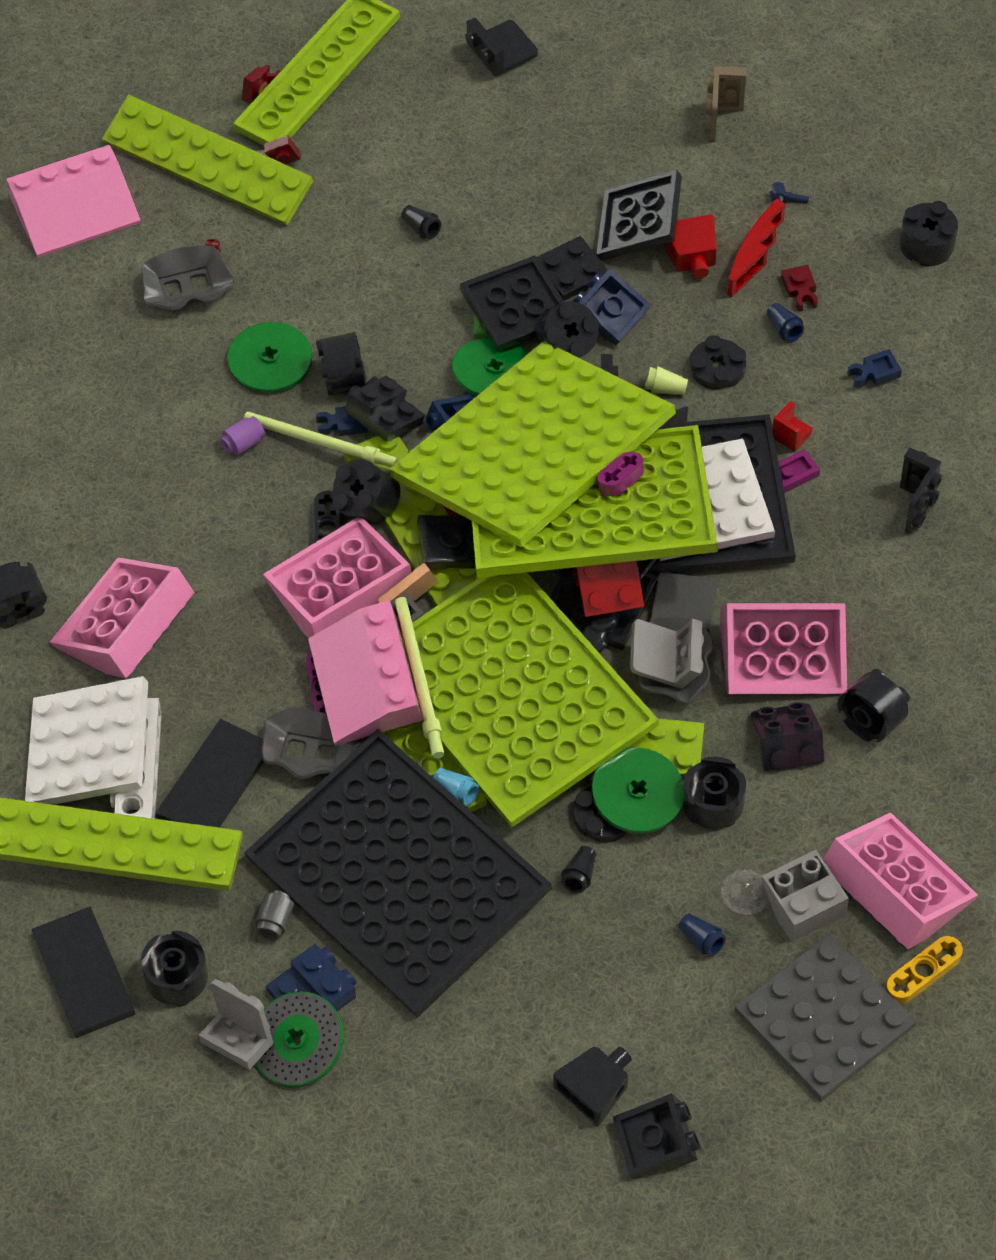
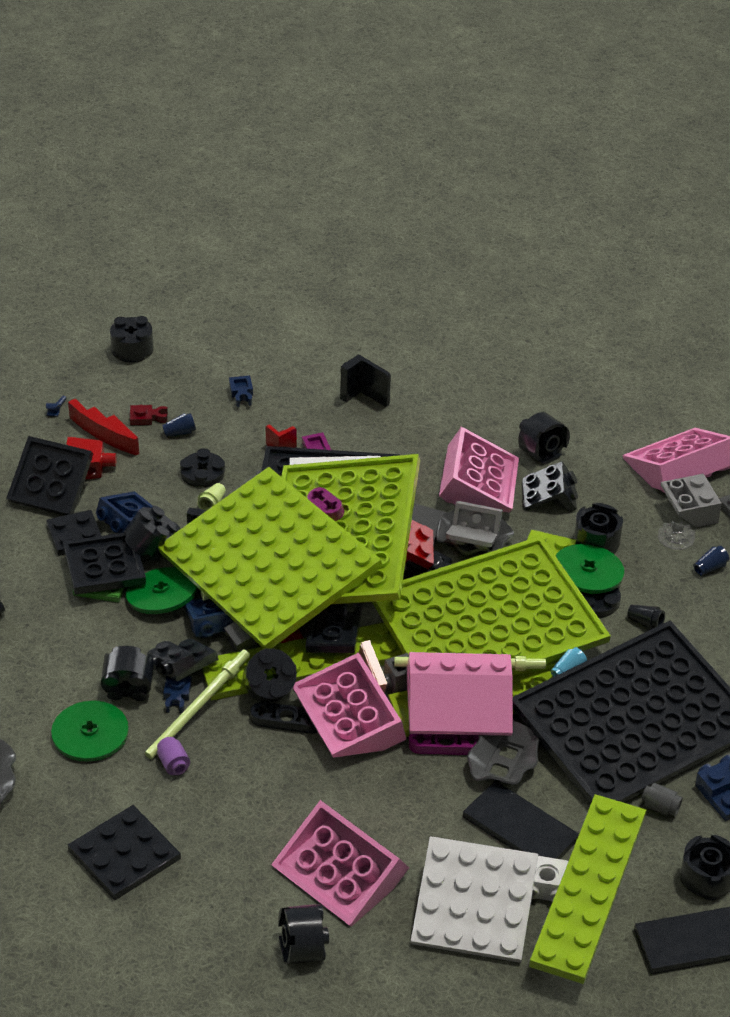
camera: 80 degrees left, 15 degrees down
(111, 426) = (124, 852): none -> black plate

